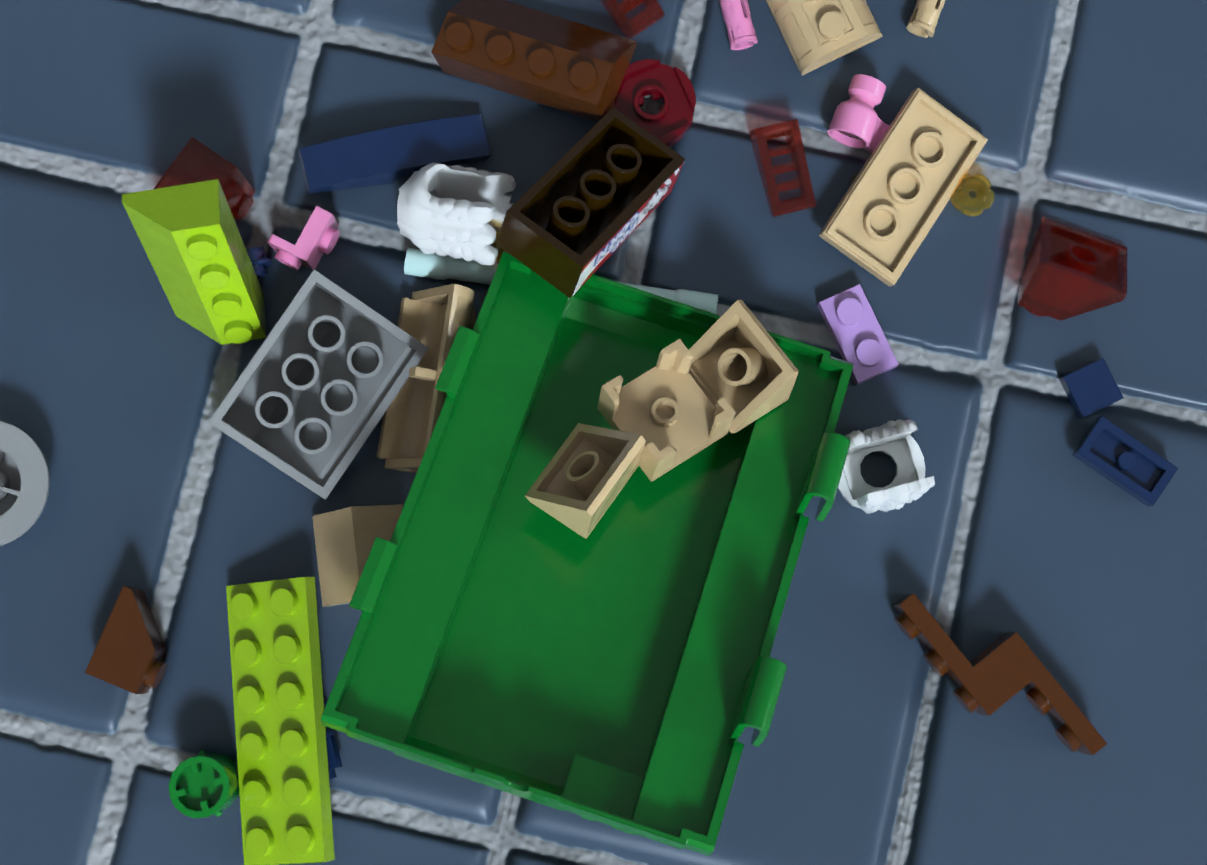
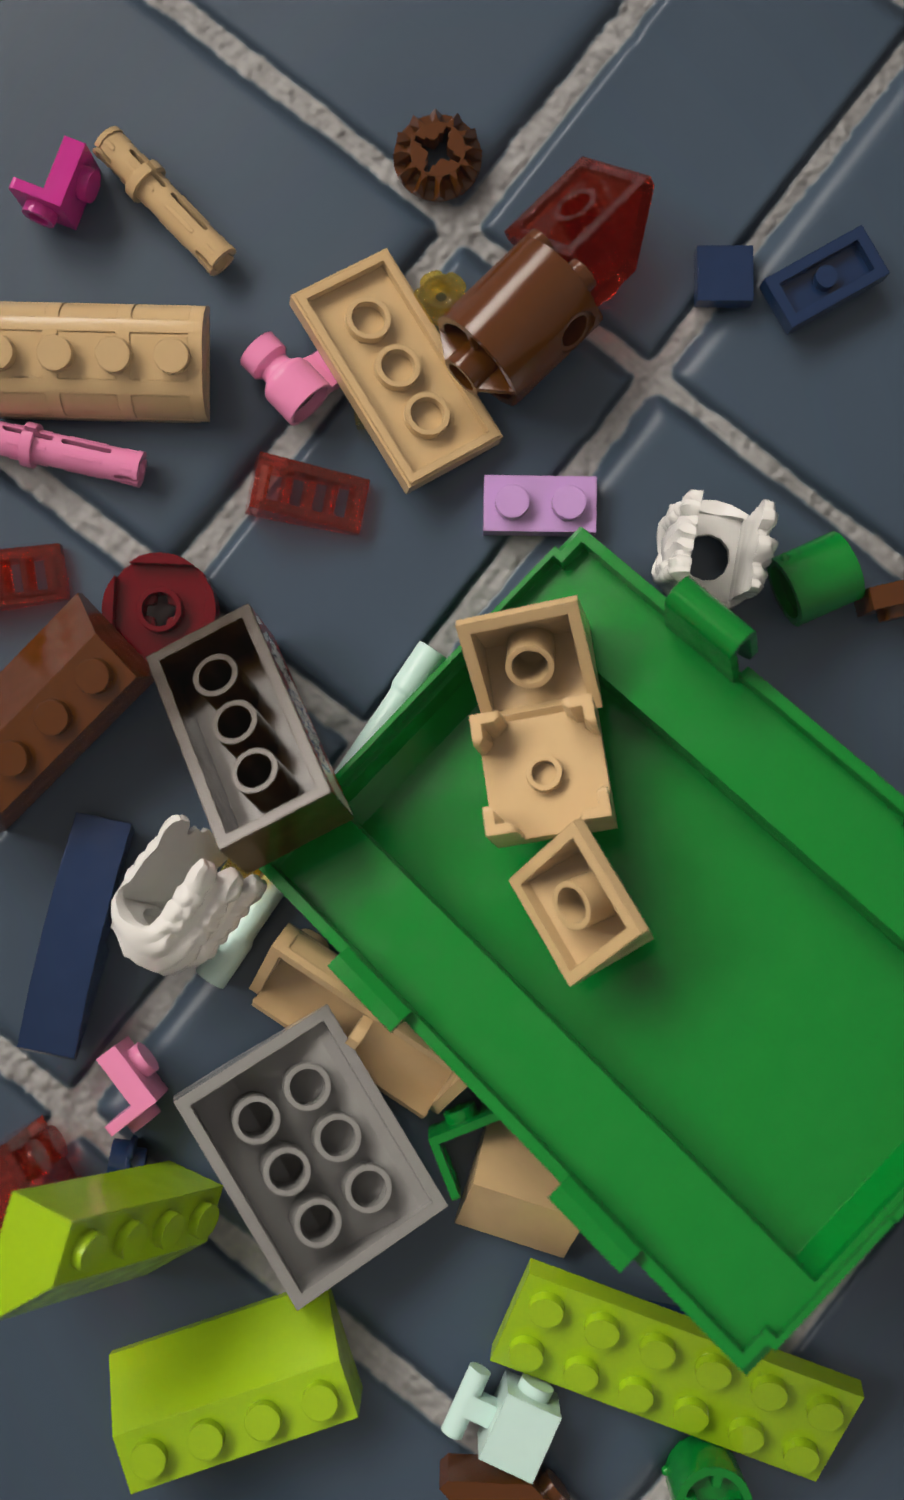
camera: 65 degrees left, 5 degrees up
(129, 409) = (230, 1387): none -> lime slope
(190, 622) = (513, 1423): none -> light aqua brick
(364, 474) = (457, 1122): none -> green bracket
(902, 555) = (816, 578): none -> green piece
(979, 253) = (519, 320): none -> reddish brown cylinder
(1059, 157) = (446, 178): none -> reddish brown gear

